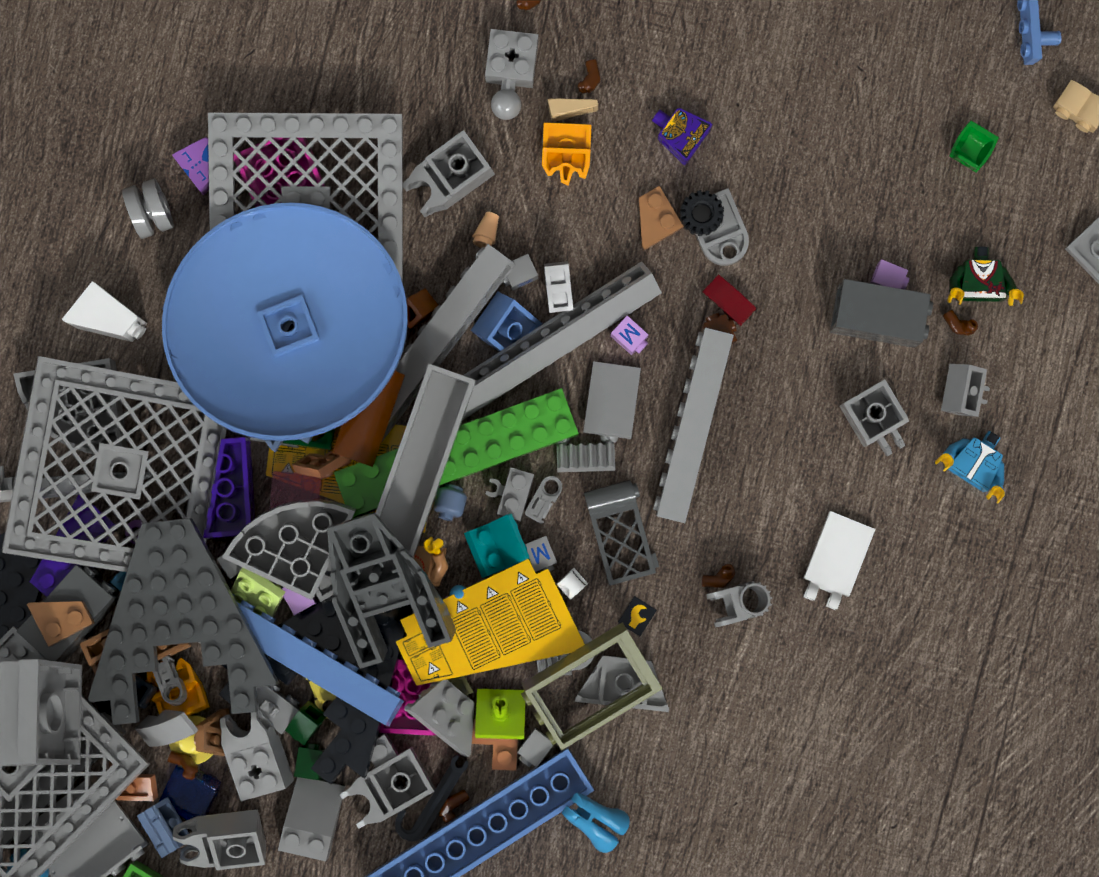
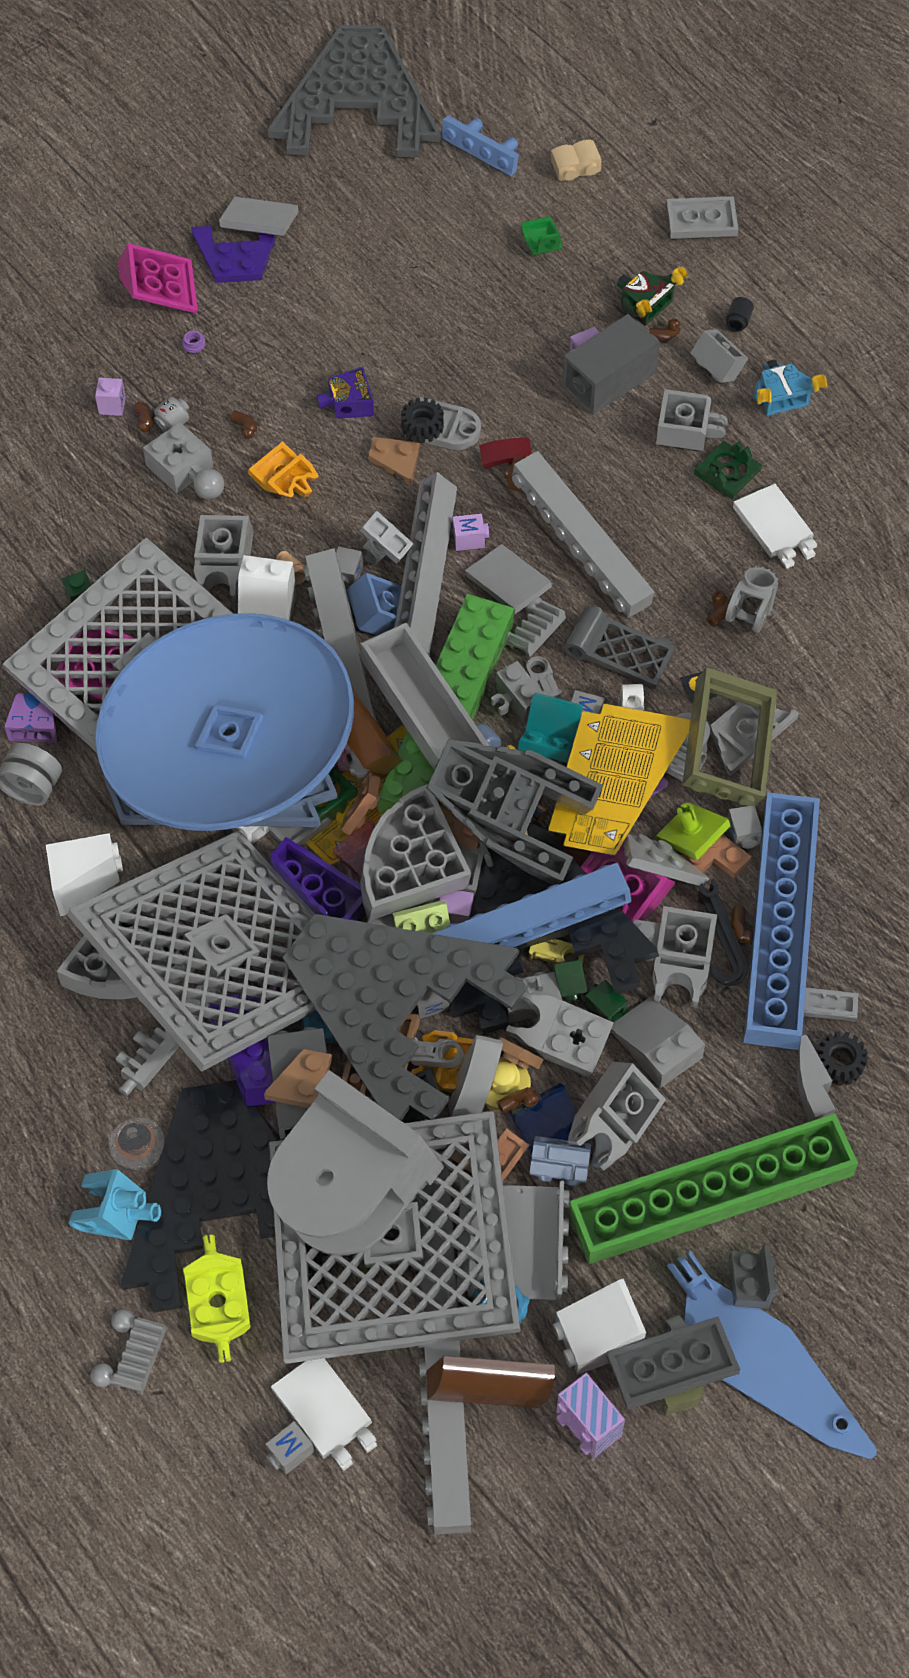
camera: 50 degrees left, 25 degrees down
(331, 97) = (75, 585): none -> dark green brick
(436, 241) = (266, 587): none -> white slope
(548, 16) = (171, 413): none -> light grey head
(568, 108) = (254, 448): tan slope -> none
(587, 810) = (849, 819): dark azure piece -> none
(878, 497) = (719, 480): none -> dark green piece
(1026, 369) = (739, 314): none -> black brick

